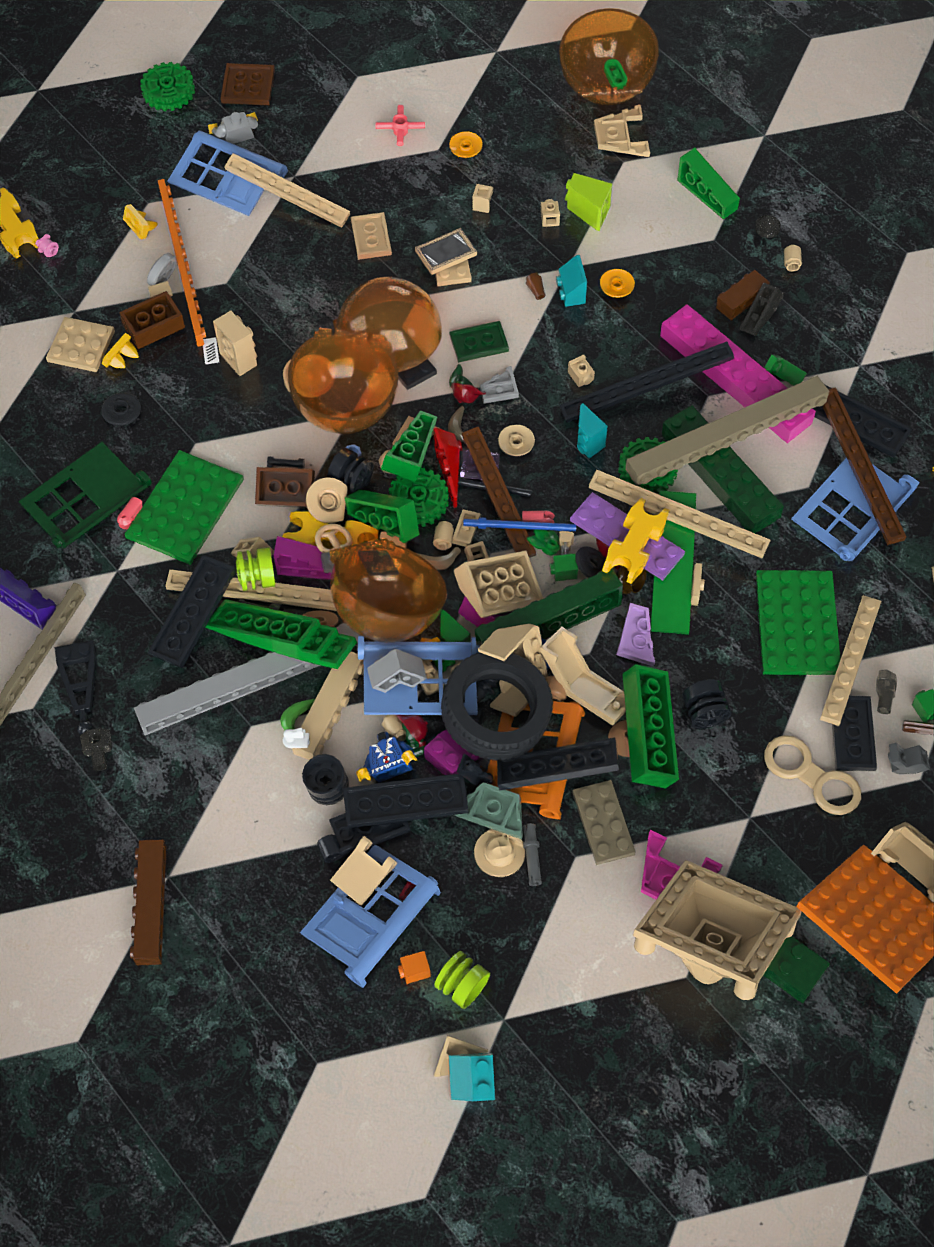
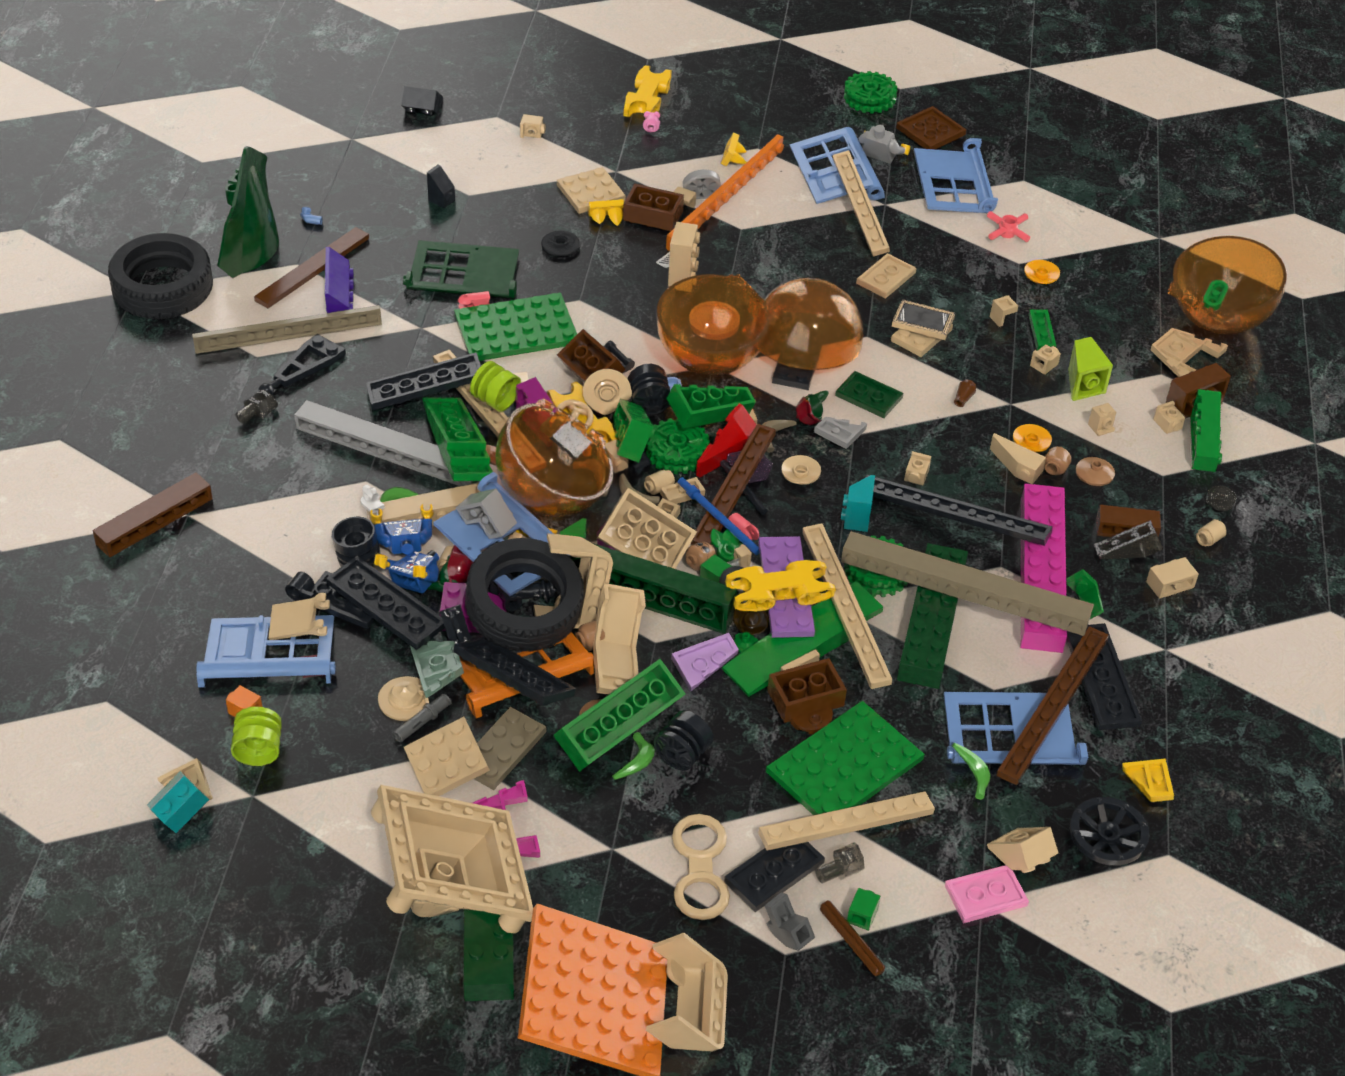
camera: 45 degrees right, 15 degrees down
(304, 101) = (955, 166): none -> medium blue door
(345, 739) = (404, 535): none -> blue torso
(520, 192) = (1041, 328): none -> green plate
(542, 564) = (698, 554): none -> medium nougat head
(572, 282) = (994, 410): teal slope -> none
(588, 865) = (446, 758): none -> tan plate
(627, 307) = (1019, 460): none -> tan slope
(639, 230) = (1102, 419): none -> tan brick
(640, 598) = (744, 641): none -> green plant
(650, 286) = (1057, 460): none -> medium nougat head
(669, 158) = (1184, 388): none -> reddish brown brick
(672, 193) = (1169, 417): none -> tan brick
(675, 273) = (1095, 471): none -> medium nougat dish
(692, 743) = (640, 761): none -> bright green piece
(724, 596) = (806, 689): none -> reddish brown brick
(748, 612) = (813, 721): none -> reddish brown plate
(810, 311) = (1172, 577): none -> tan brick
(874, 551) = (977, 767): none -> bright green piece

